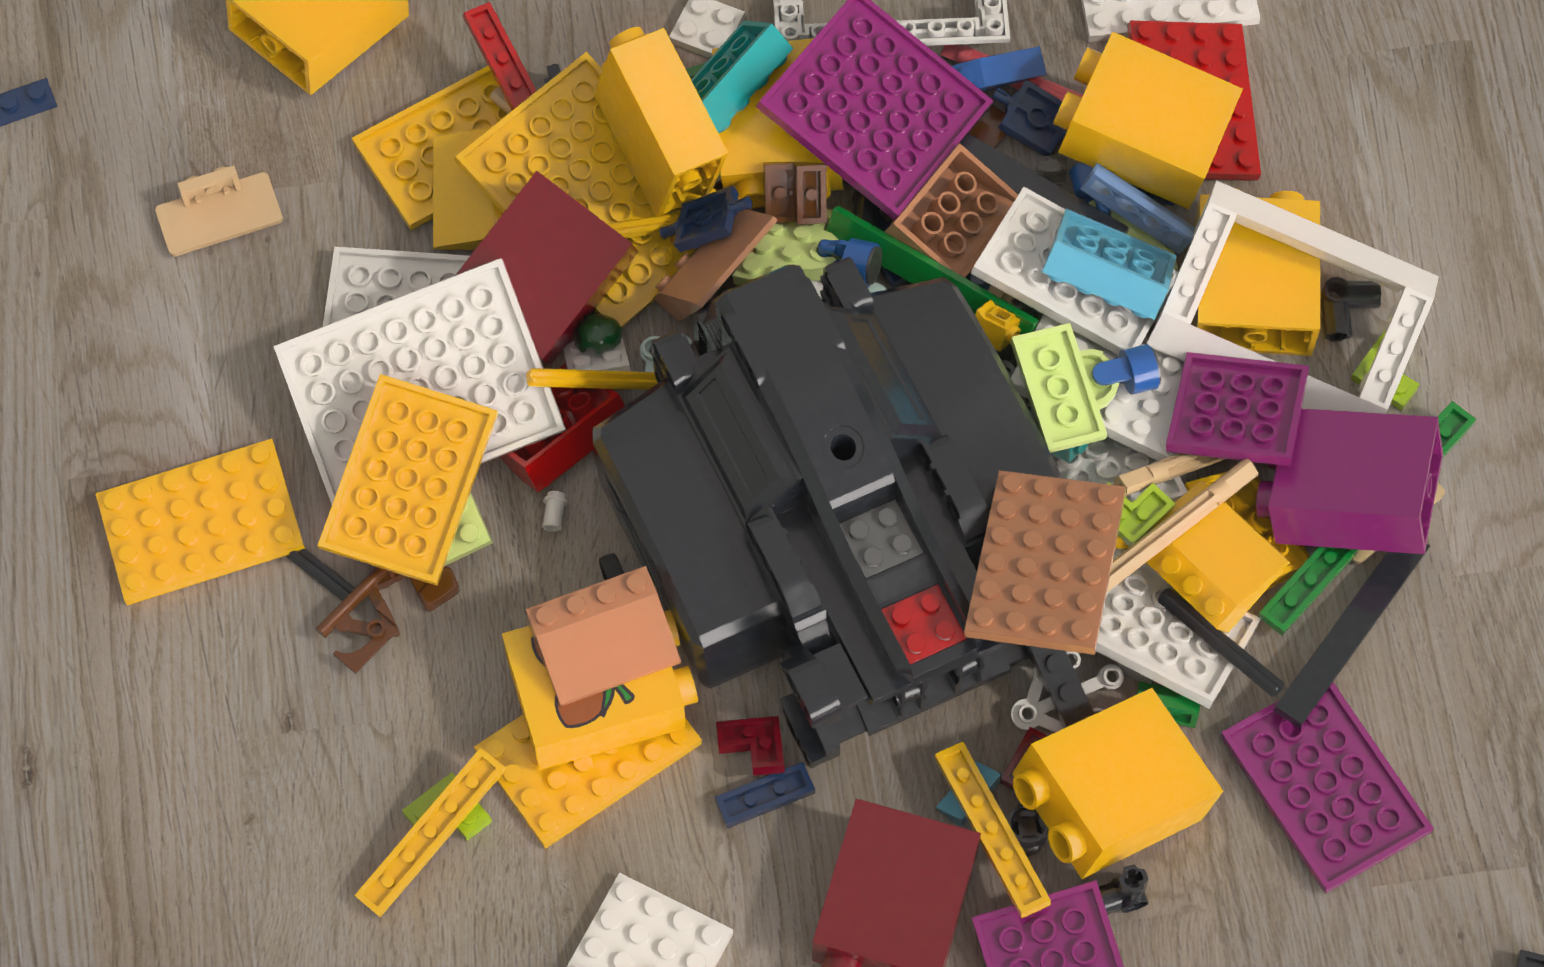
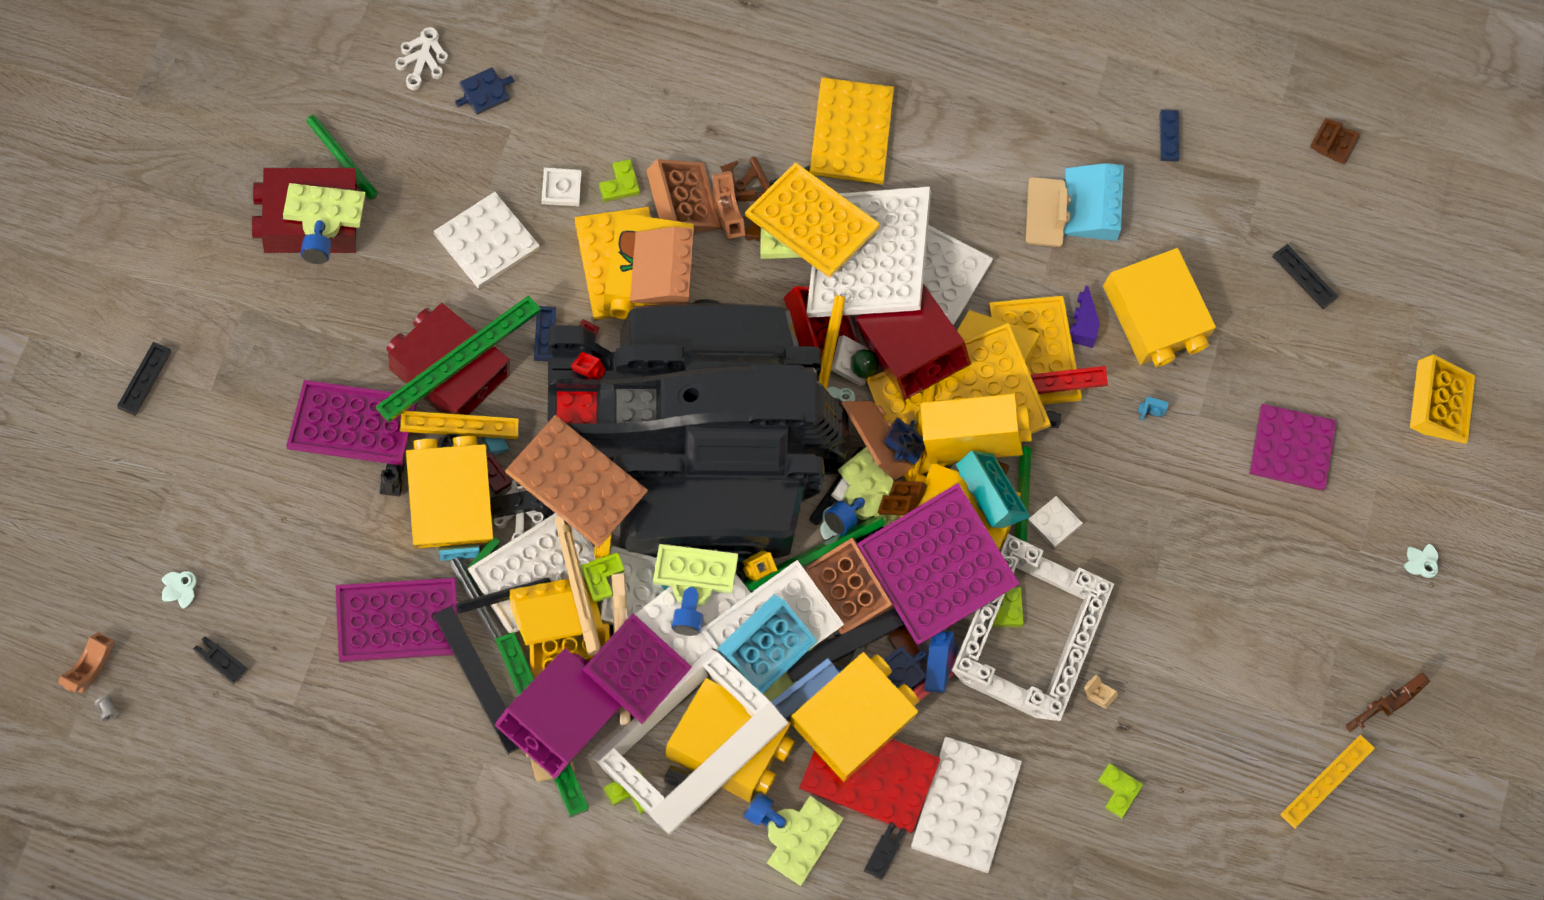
camera: 105 degrees right, 0 degrees up
(165, 150) = (1094, 201): none -> medium azure slope
(379, 95) = (1087, 321): none -> dark purple slope
(428, 629) = (725, 201): none -> nougat arch
(430, 832) = (608, 163): yellow plate -> none
(435, 703) = (683, 194): none -> nougat slope
(500, 888) = (561, 187): none -> white plate
(555, 504) = (766, 300): white pin -> none
(845, 639) = (588, 366): none -> red bracket
(900, 864) = (458, 359): none -> green plate
(1231, 694) = (473, 592): none -> dark grey axle
(1284, 46) = (884, 853): none -> black hinge
(1327, 153) = (797, 834): none -> yellowish green plate

